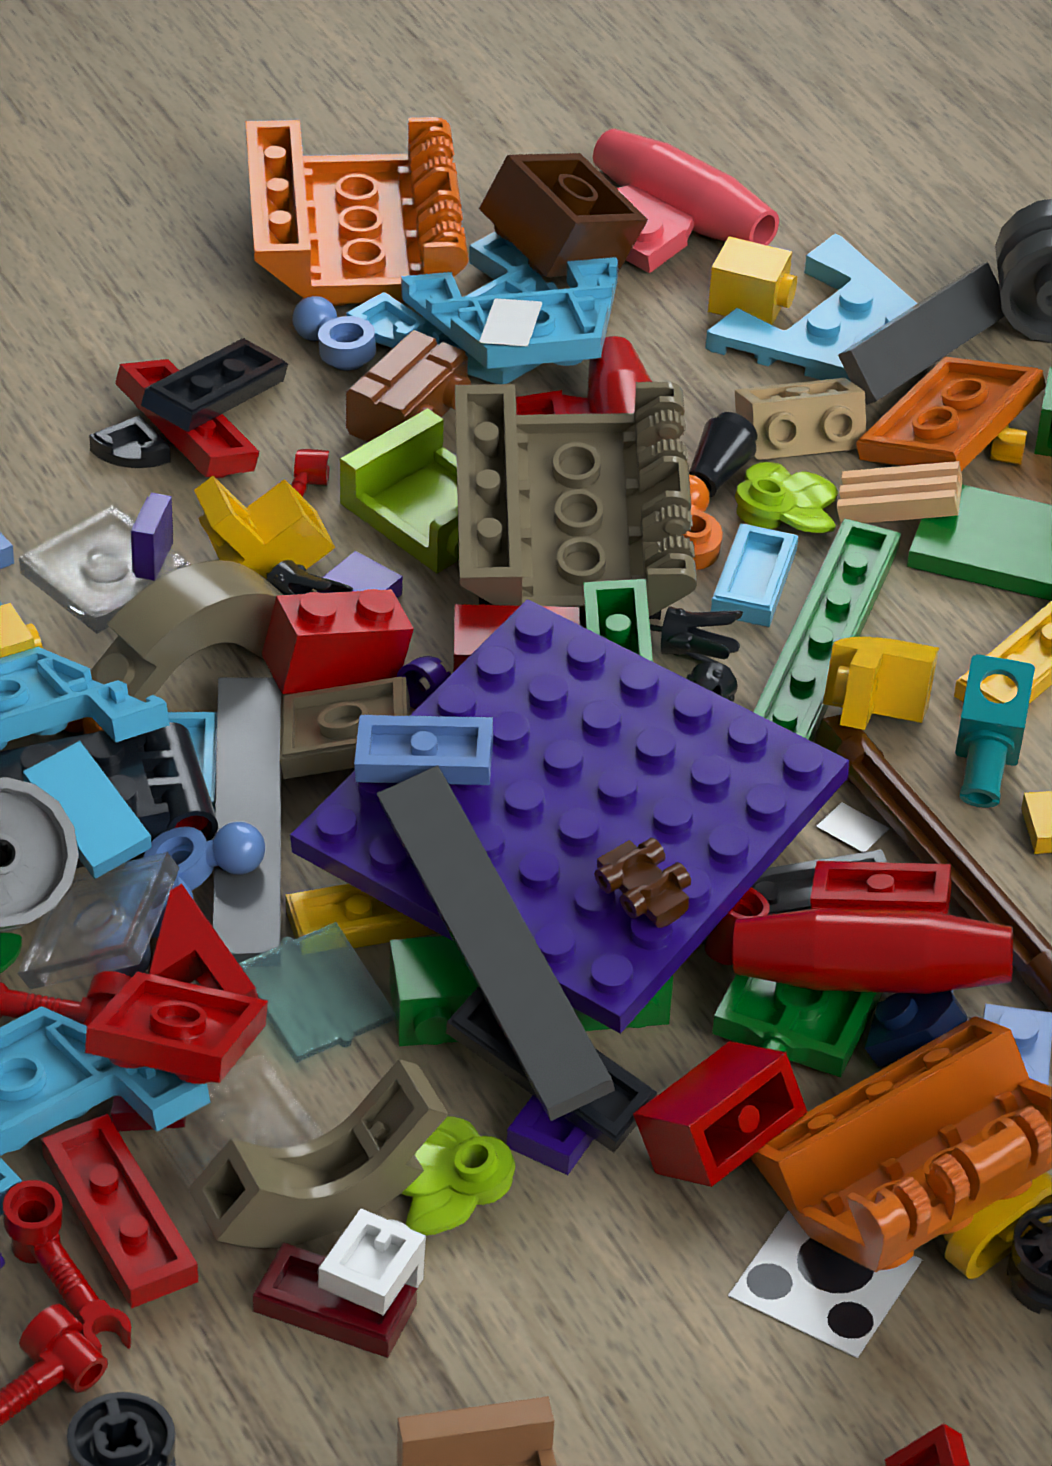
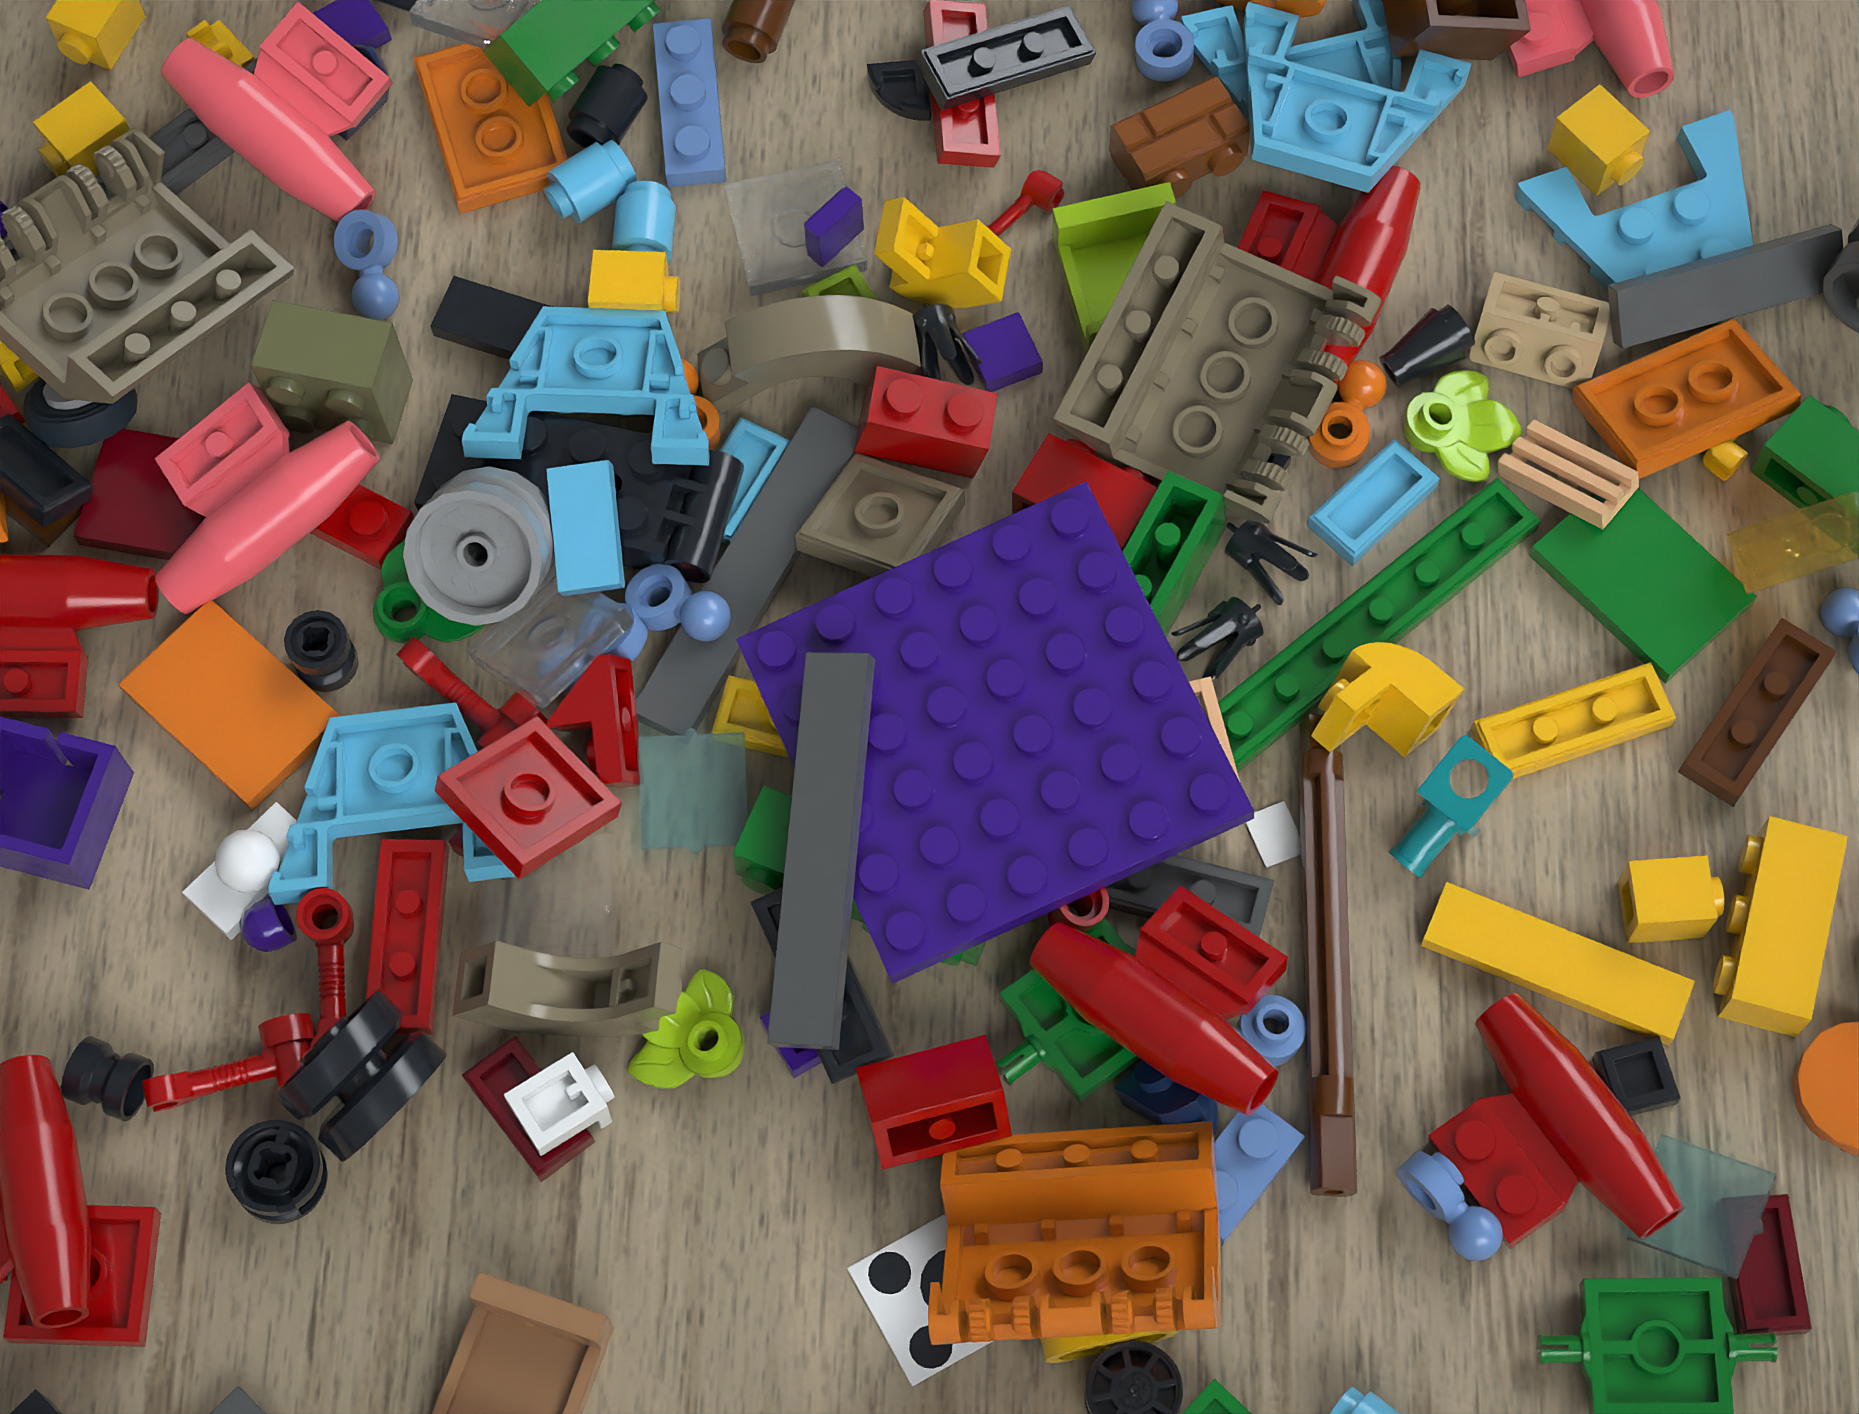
camera: 35 degrees right, 25 degrees up
(179, 1307) = (355, 1070): none -> black wheel
(404, 746) = (878, 621): medium blue plate -> none
(421, 668) = (988, 493): dark purple hinge -> none
(511, 322) = (1301, 117): white sticker -> none
(642, 883) = (977, 873): reddish brown piece -> none

